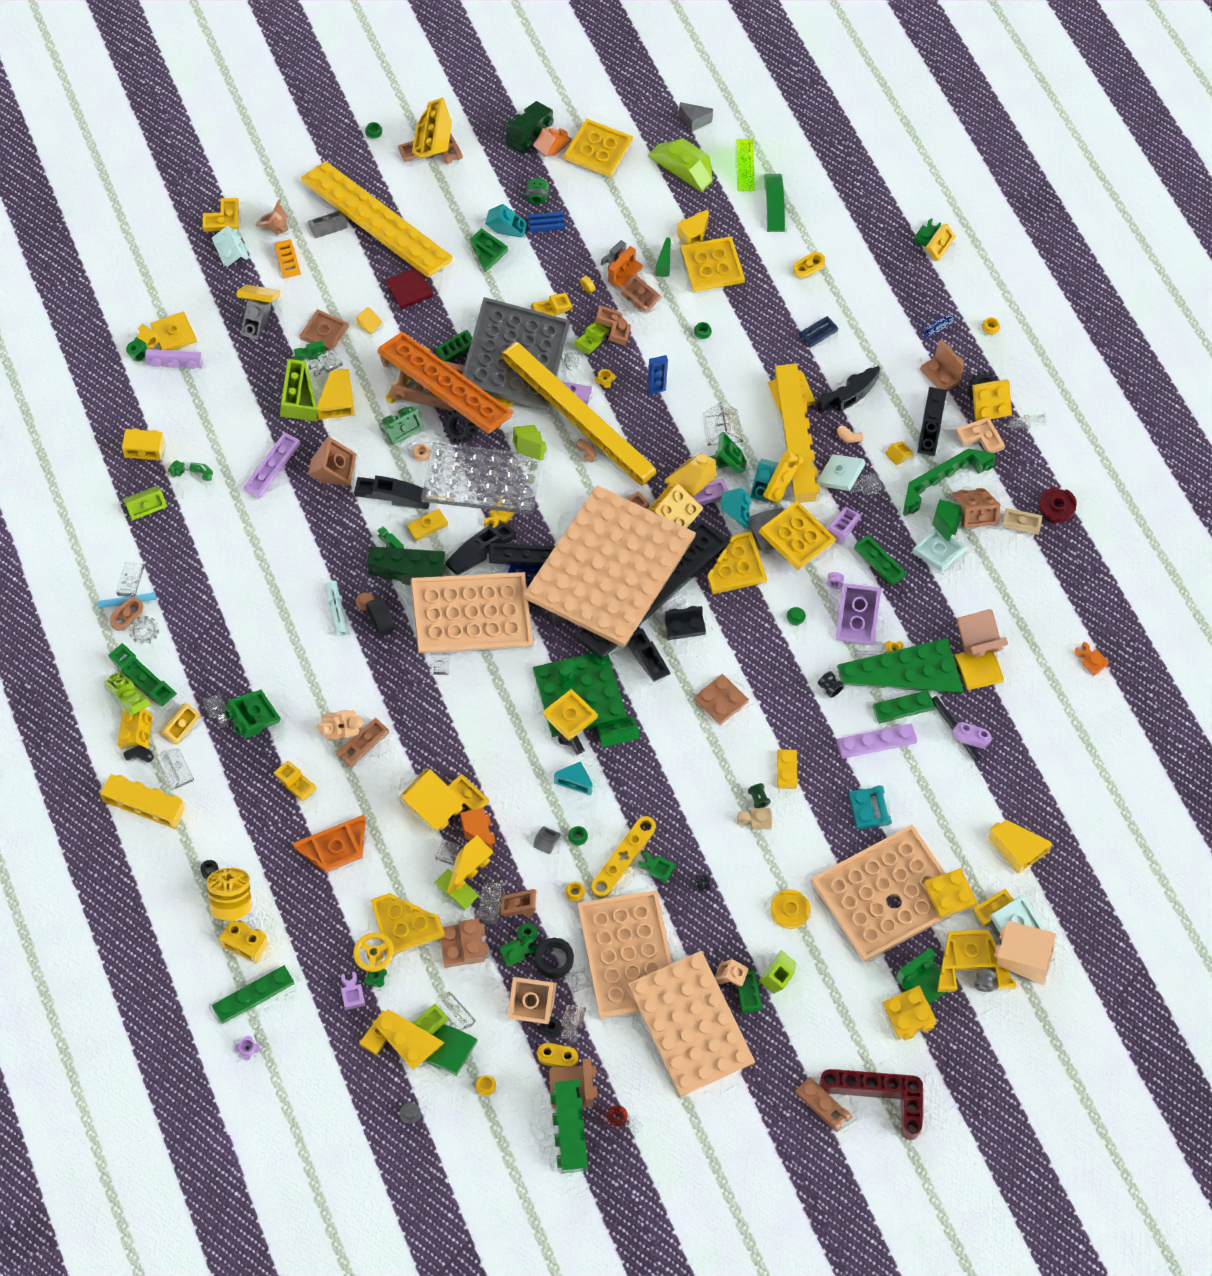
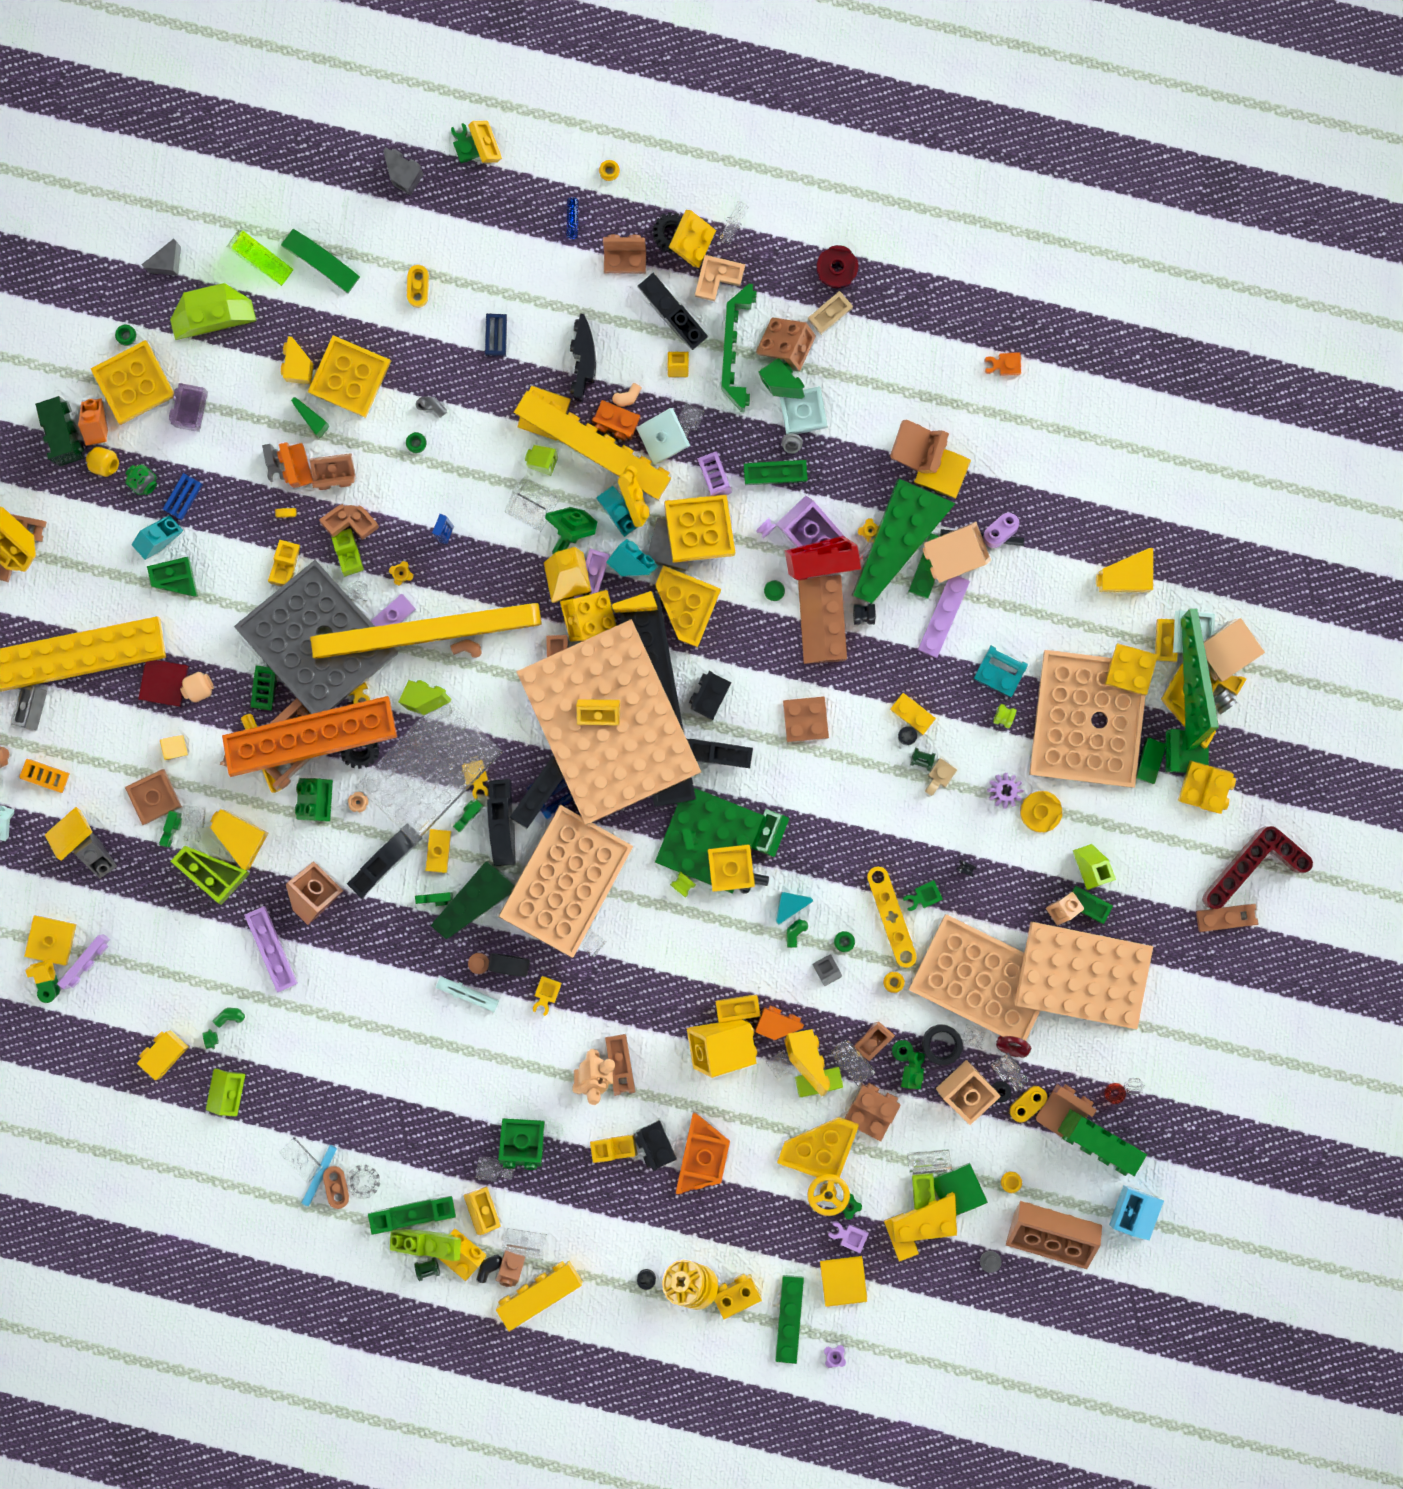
camera: 50 degrees left, 25 degrees up
(102, 710) = (427, 1269): none -> dark green bush
(148, 768) = (510, 1269): none -> nougat bracket
(312, 1012) = (843, 1281): none -> yellow slope
(318, 807) = (655, 1145): none -> black bracket
(379, 658) = (547, 992): none -> yellow plate
(422, 306) = (197, 687): none -> light nougat head
(467, 1145) = (1054, 1235): none -> nougat slope
(469, 525) = (471, 811): none -> green plate
(530, 161) = (102, 461): none -> yellow head
(531, 695) = (683, 884): none -> lime wheel
(534, 1196) = (1136, 1213): none -> medium azure slope
(563, 795) = (794, 930): none -> green arm
(592, 1019) = (1015, 1051): none -> dark red piece
(609, 186) = (188, 407): none -> clear purple brick
(610, 549) = (598, 712): none -> yellow slope
(626, 125) = (120, 332): none -> green plate
(709, 528) = (642, 602): none -> yellow slope
(737, 322) = (431, 403): none -> flat silver arm
(759, 410) = (541, 459): none -> lime slope
(763, 779) = (905, 729): none -> black bush
(790, 874) = (1012, 793): none -> lavender gear
(804, 661) = (822, 619): none -> nougat slope
(825, 439) = (616, 420): none -> orange bracket
(839, 830) = (1004, 716): none -> lime wheel
(844, 623) = (823, 558): none -> red wedge
(875, 208) = (403, 173): none -> flat silver slope
(893, 959) = (1150, 760): none -> green slope
(905, 557) = (792, 443): none -> light grey plate
(930, 710) = (956, 552): none -> light nougat slope
(981, 933) = (1198, 695): none -> green wing

